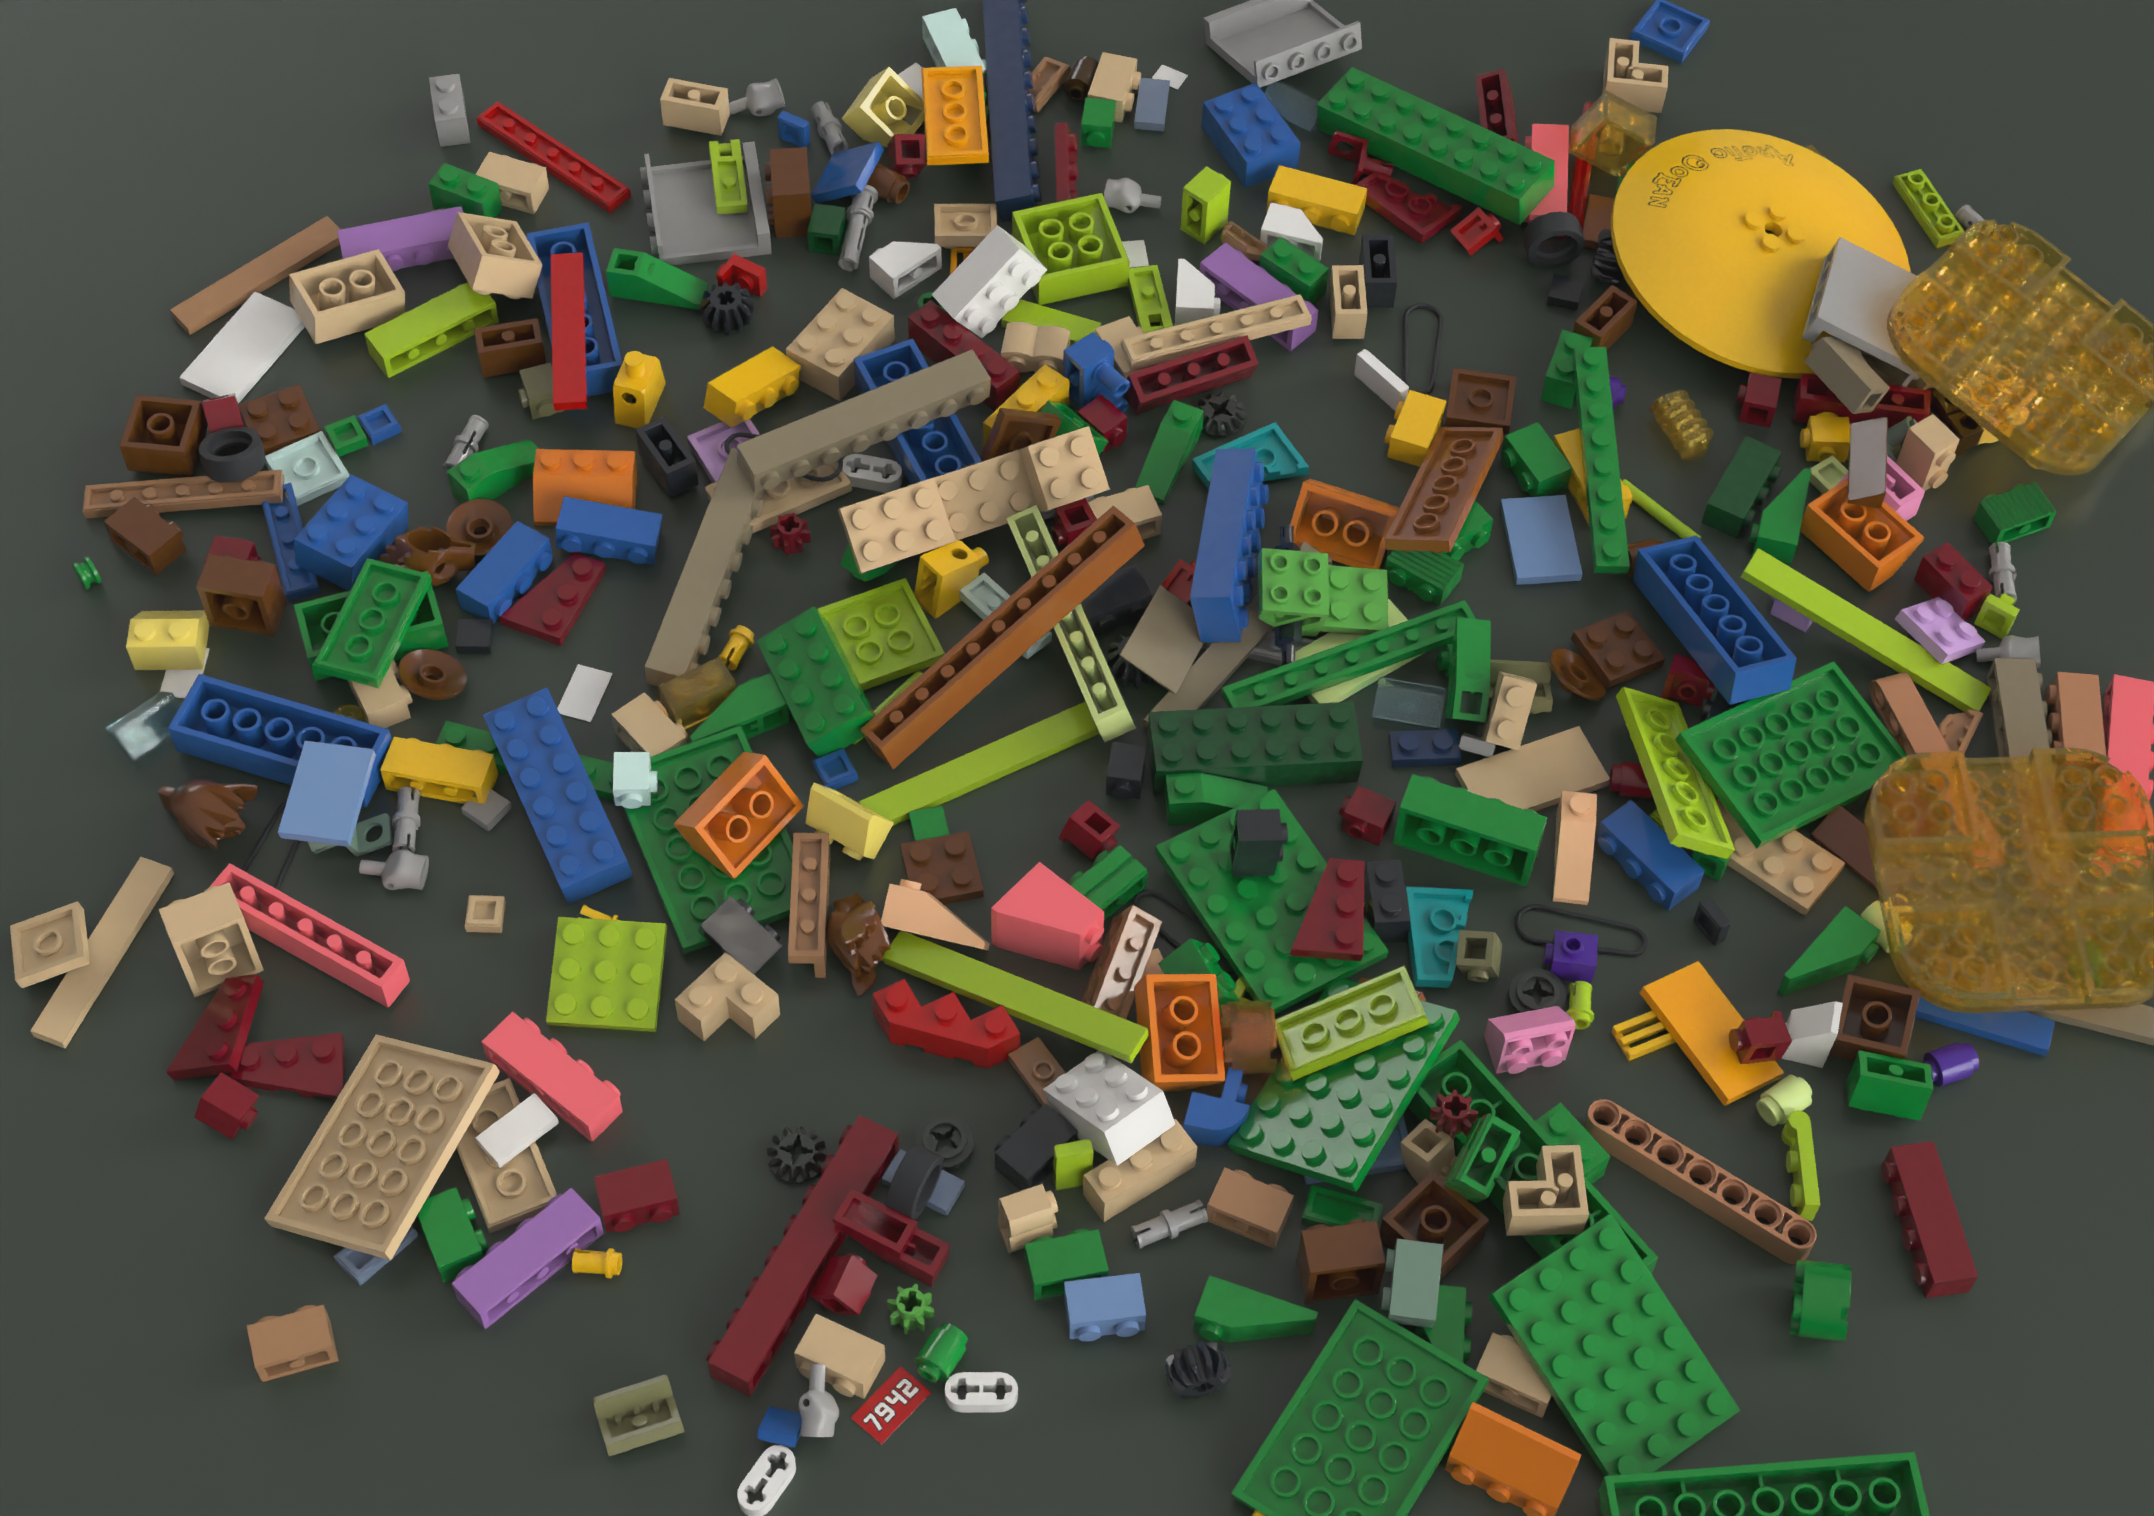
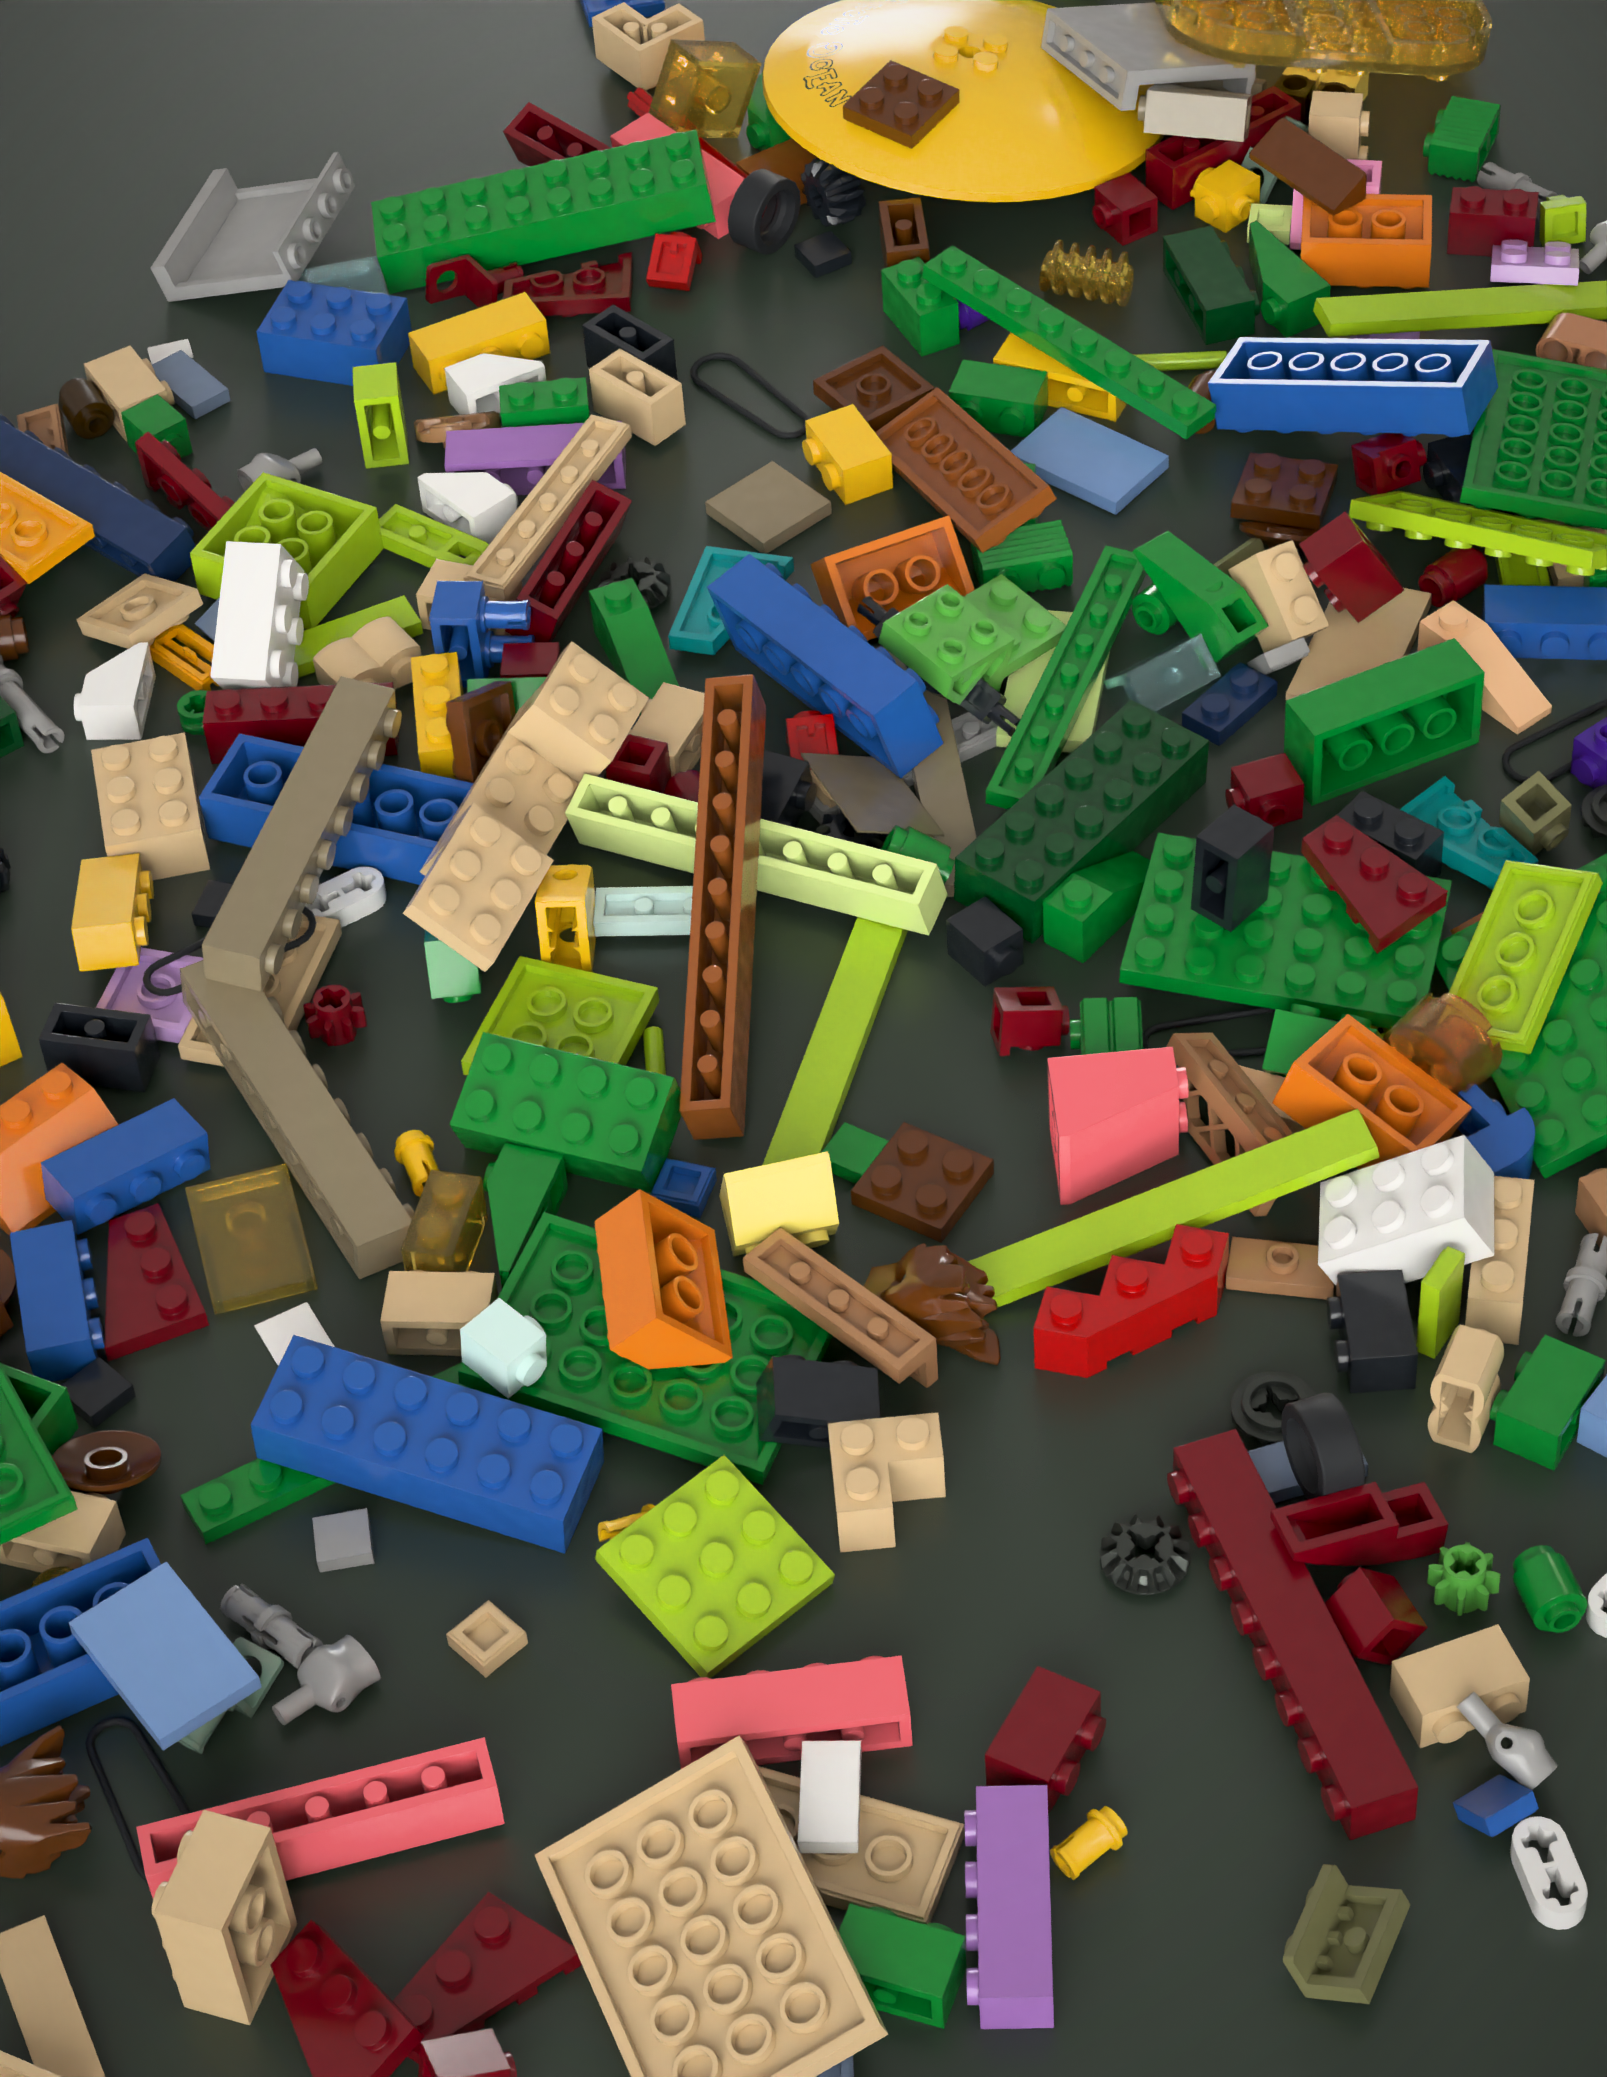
camera: 40 degrees left, 10 degrees down
(439, 770) = (250, 1539): yellow brick -> none
(623, 618) = (251, 1238): none -> clear yellow tile
(891, 1405) = (1560, 1690): red sticker -> none
(923, 914) = (983, 1220): light nougat slope -> none
(1140, 694) = (920, 846): none -> green brick
(1342, 425) = (768, 507): none -> dark tan tile
(1380, 379) = (758, 440): white tile -> none
(1561, 727) = (1350, 567): none -> dark red brick
(1682, 234) = (901, 104): none -> reddish brown plate

